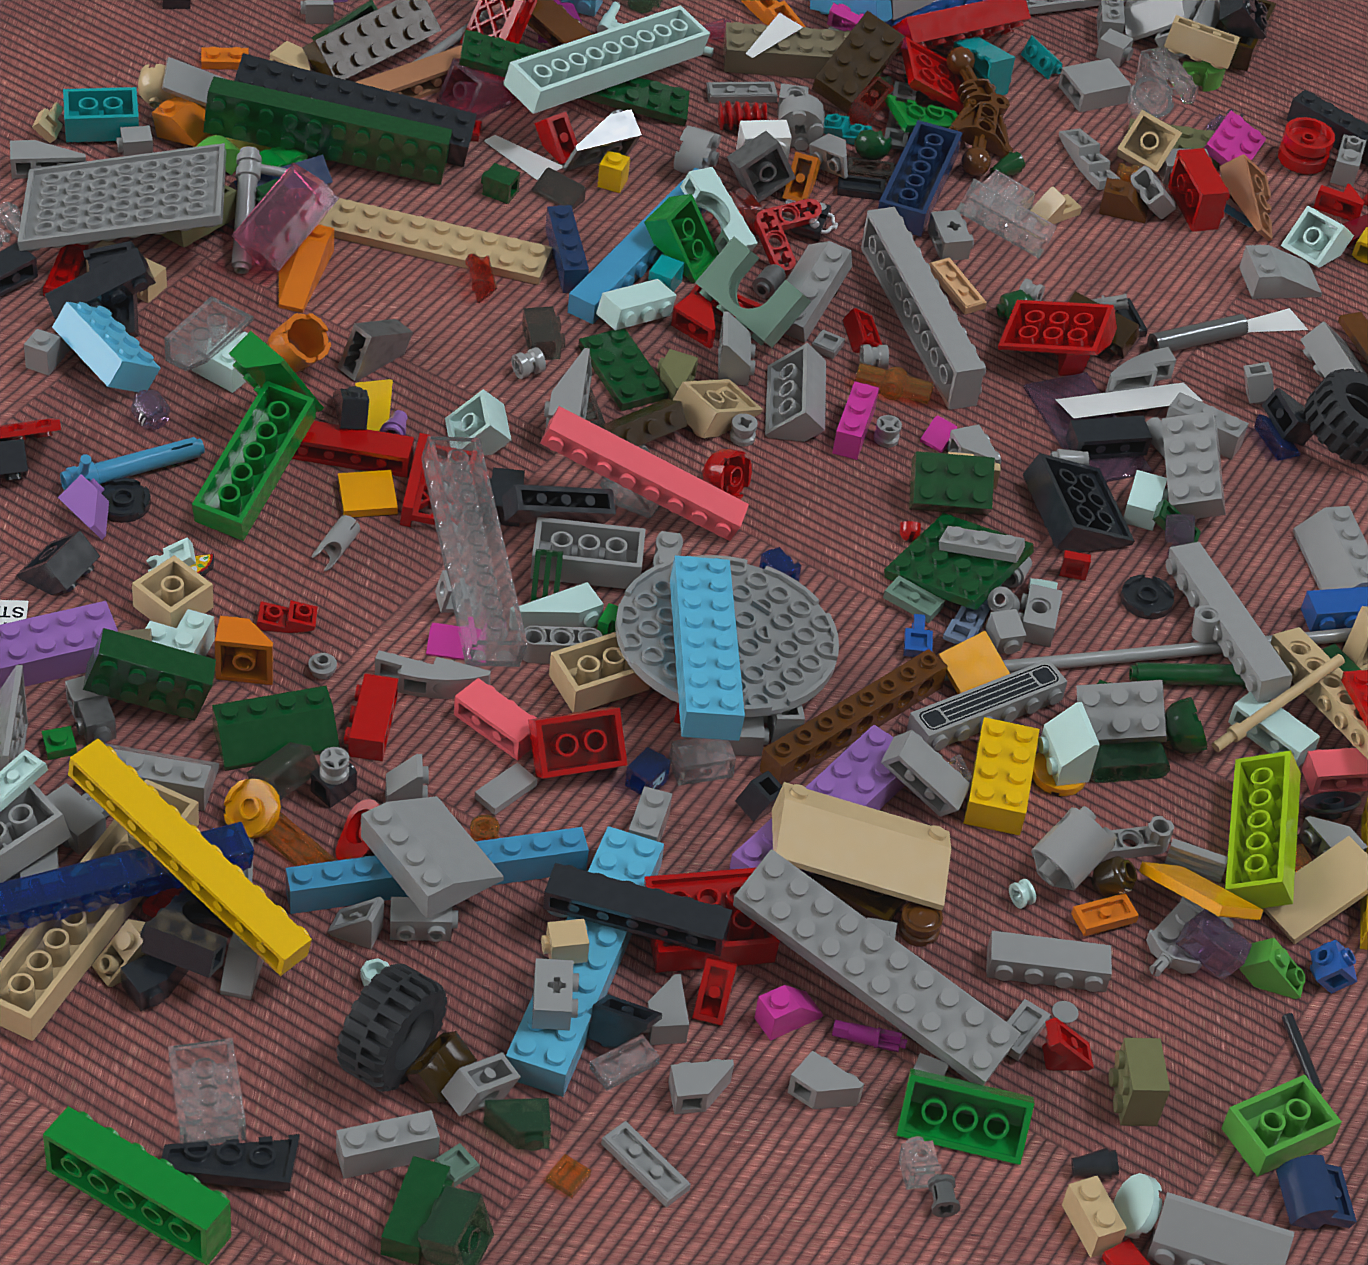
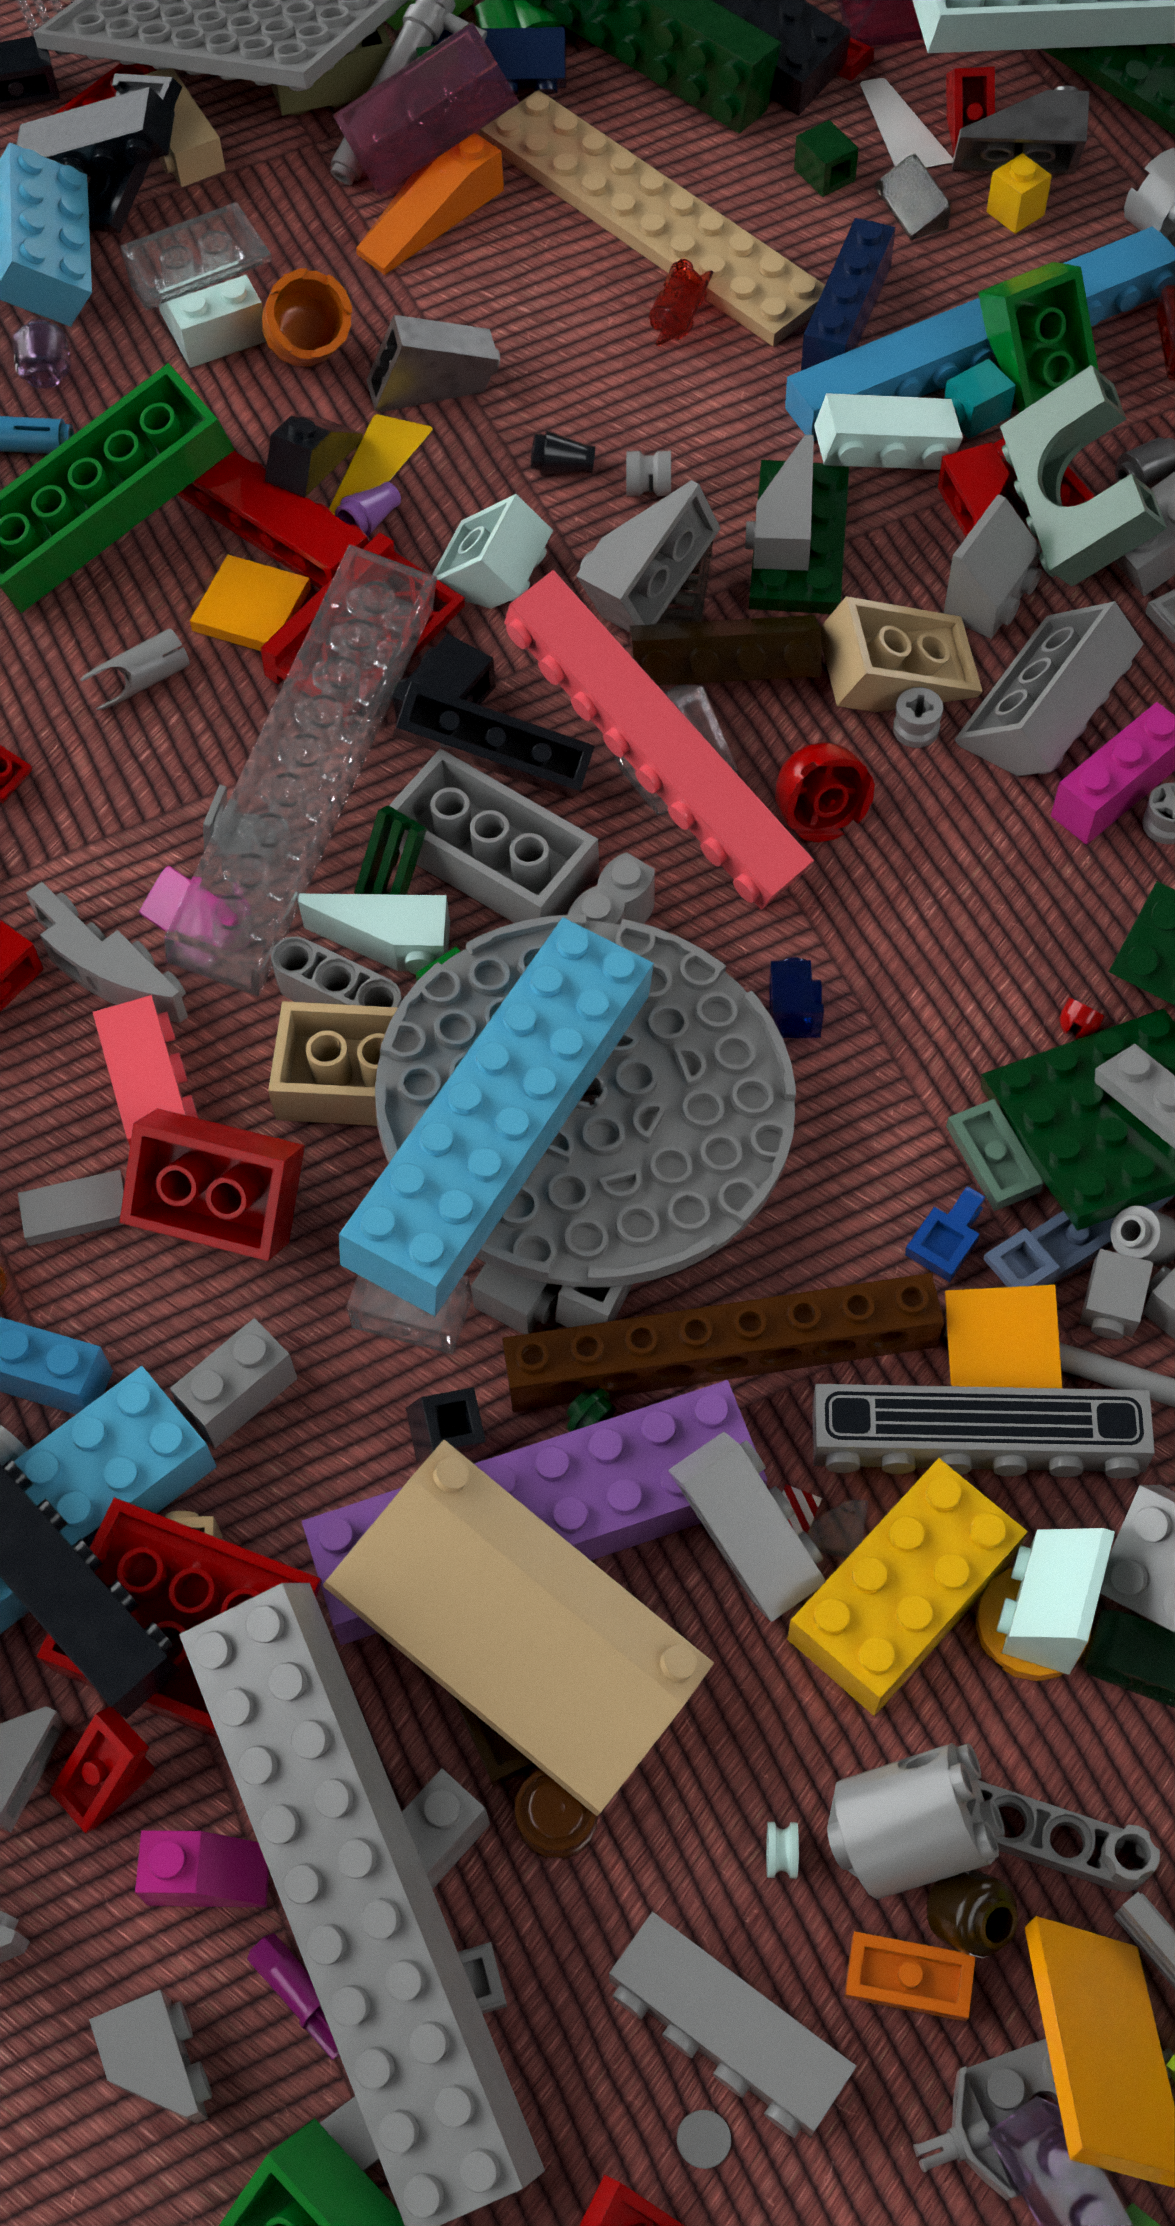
camera: 40 degrees right, 15 degrees up
(261, 363) = (203, 354): green slope -> none
(474, 369) = (560, 454): none -> black cone
(542, 330) = (707, 430): clear smoke brick -> none
(622, 360) = (784, 514): none -> light grey slope
(647, 770) = (306, 1285): clear blue brick -> none
(675, 369) = (880, 570): olive slope -> none
(713, 197) = (1133, 274): light aqua arch -> none
(816, 767) = (589, 1409): none -> dark green plate
(1030, 1022) = (588, 2140): light grey plate -> none

